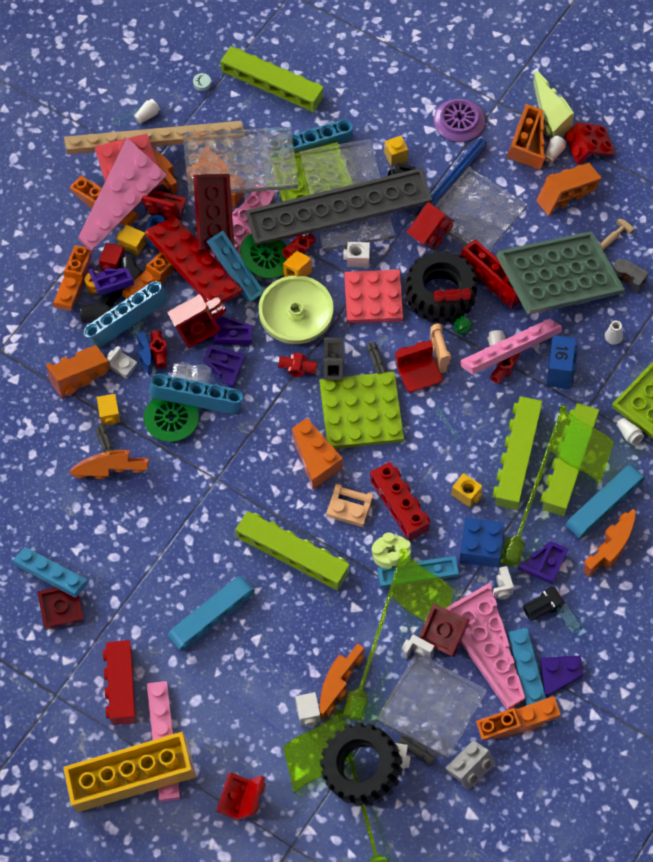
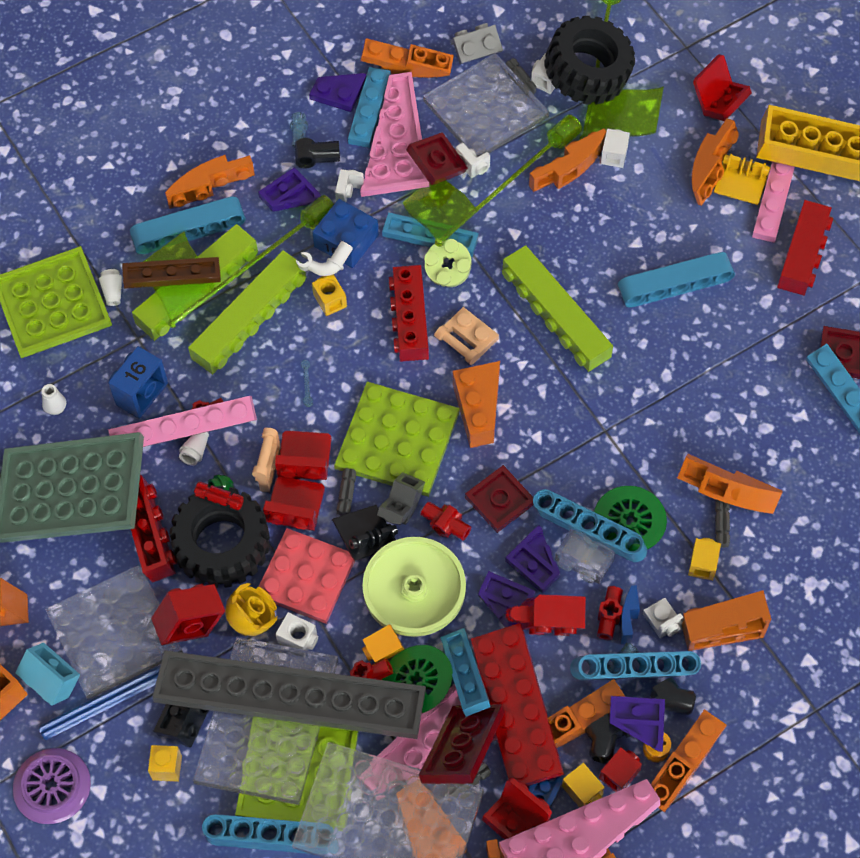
camera: 155 degrees left, 0 degrees up
(196, 725) = (742, 179): none -> yellow hinge
(226, 725) = (708, 160): none -> orange slope
(267, 395) = (500, 498): none -> dark red plate
(352, 331) = (364, 531): none -> black hinge
(393, 250) = (250, 610): none -> yellow cylinder
(404, 329) = (294, 503): none -> red bracket
(472, 499) = (332, 265): none -> white piece
(499, 167) = (47, 674): none -> medium azure brick
(585, 438) = (171, 272): none -> reddish brown plate

